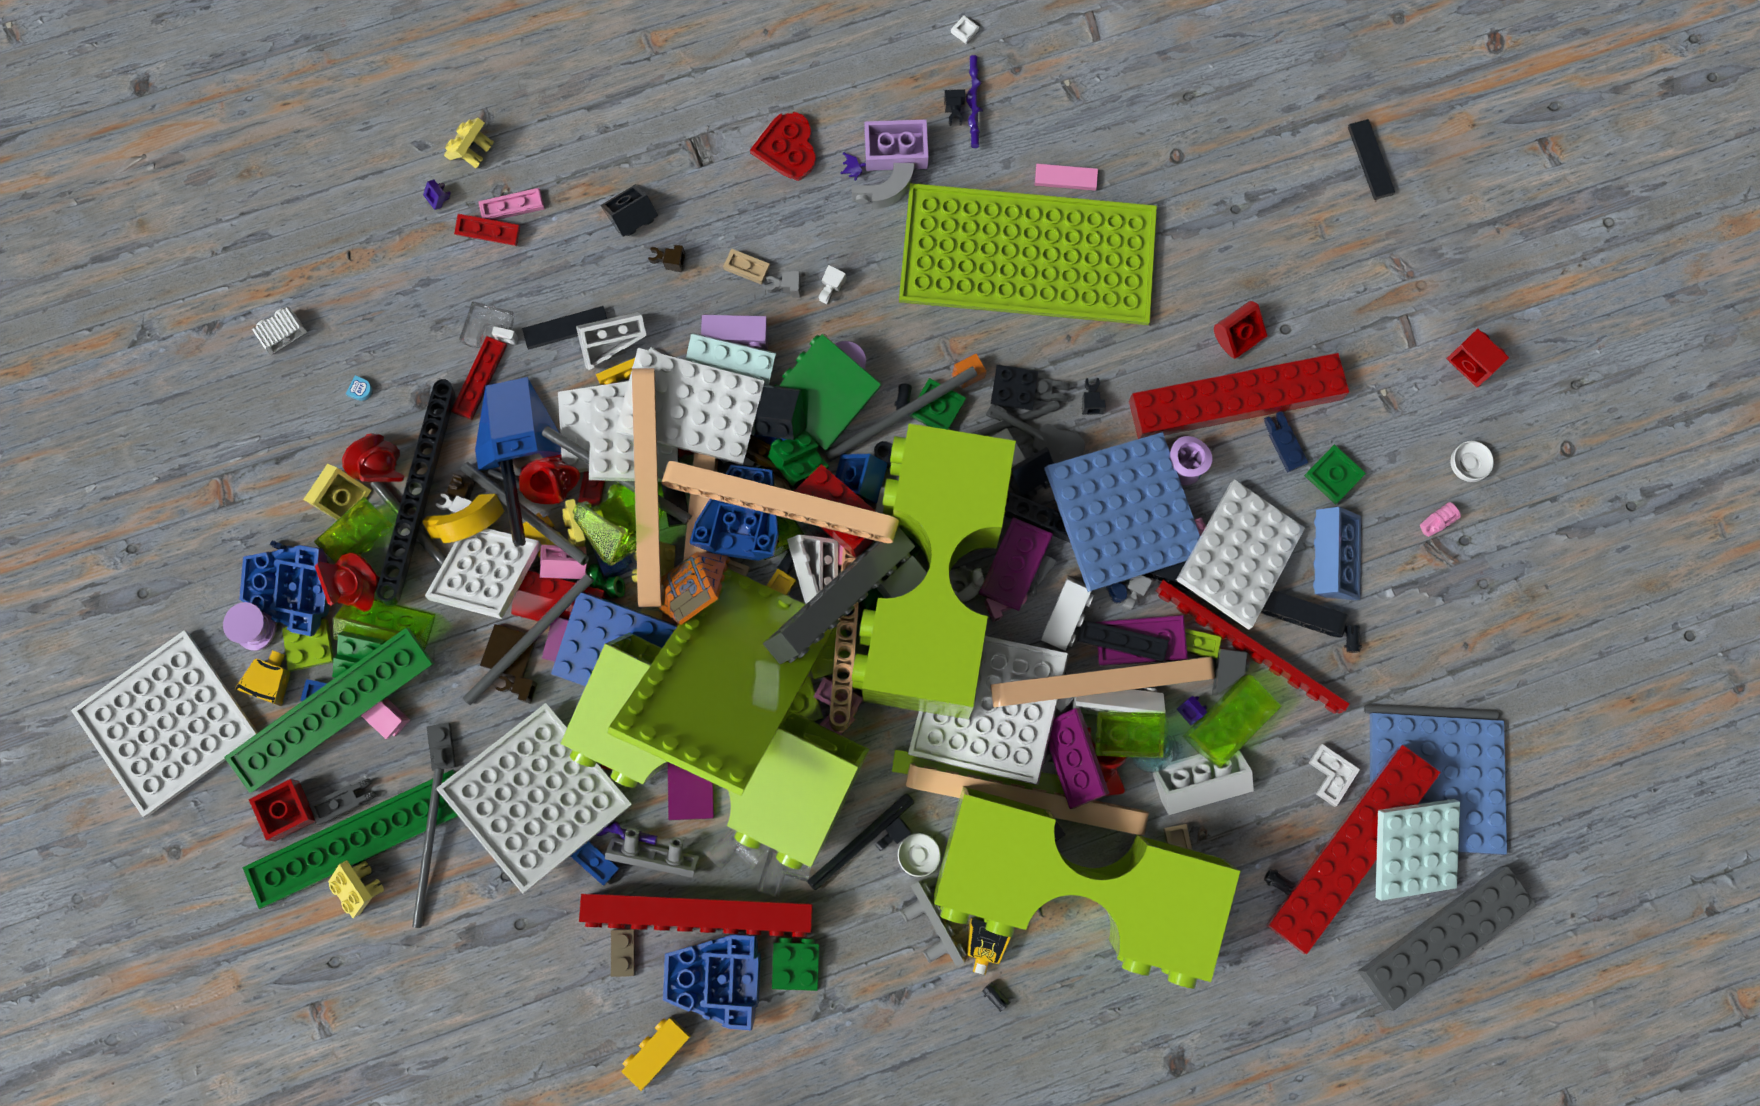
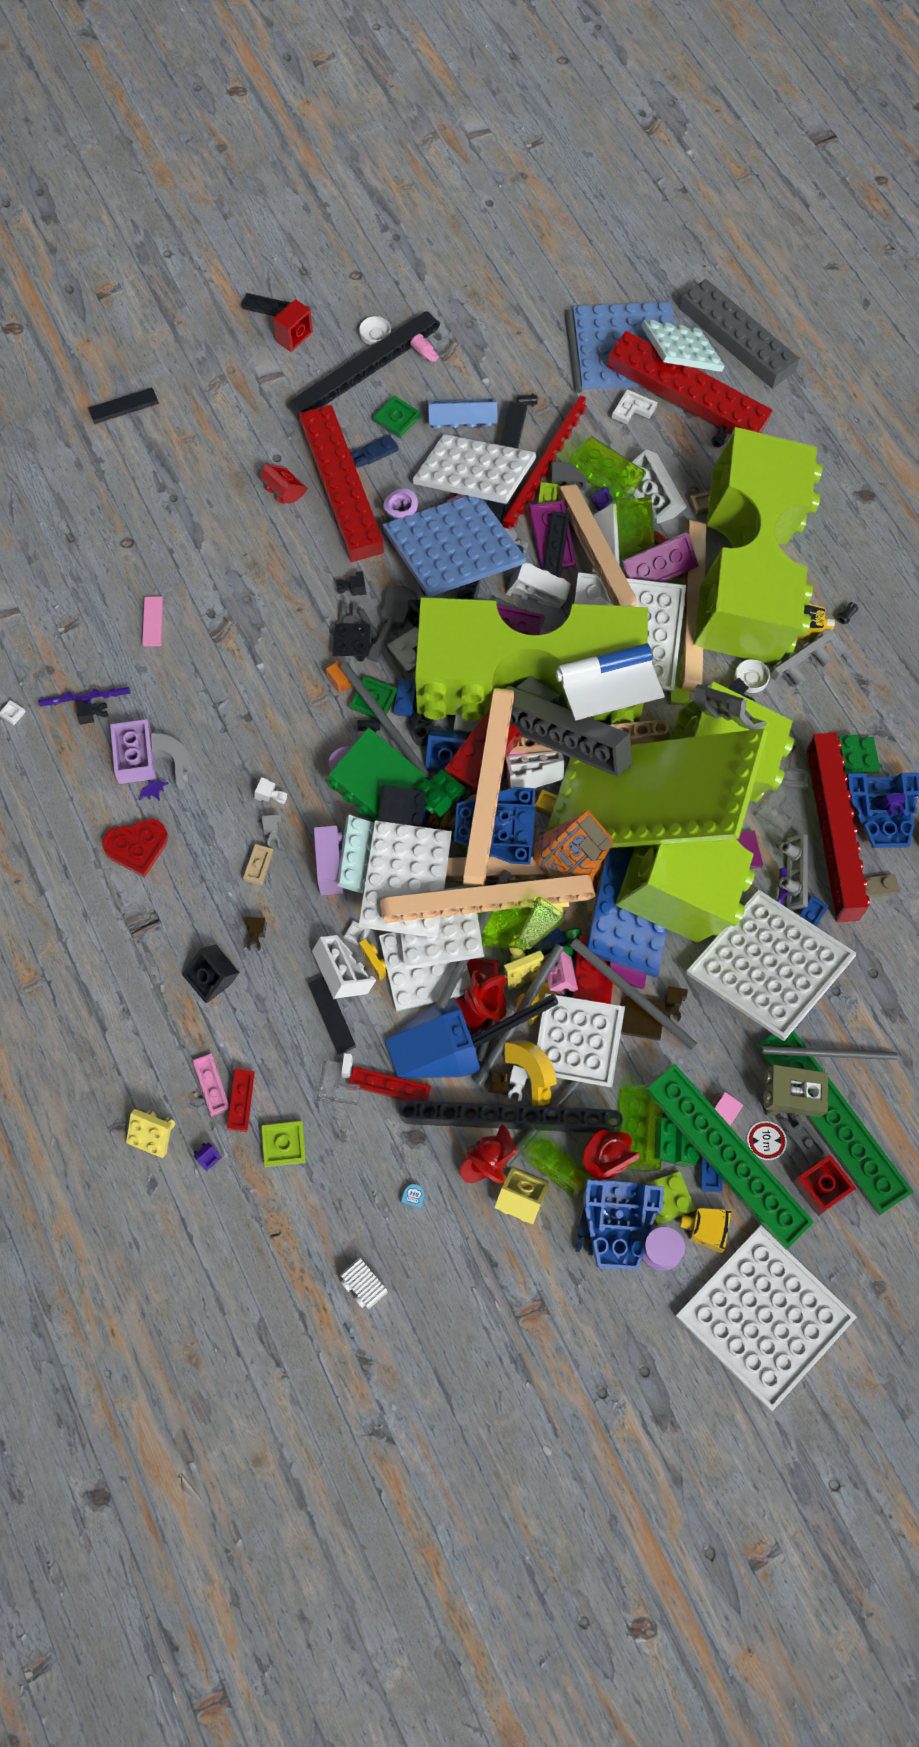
camera: 95 degrees left, 10 degrees down
(349, 888) = (879, 1110): light yellow plate -> none
(350, 762) = (767, 1140): none -> sticker
(379, 775) = (780, 1094): none -> olive brick
(435, 268) = (283, 1144): none -> lime plate
(441, 746) = (737, 1062): dark grey hinge -> none
(714, 986) = (893, 802): none -> dark purple tile
(791, 767) = (721, 704): none -> dark grey piece
(871, 644) = (610, 681): none -> white door
(1028, 254) = (227, 645): lime plate -> none
(1418, 443) = (364, 364): none -> black beam
(1516, 344) = (263, 304): none -> black tile

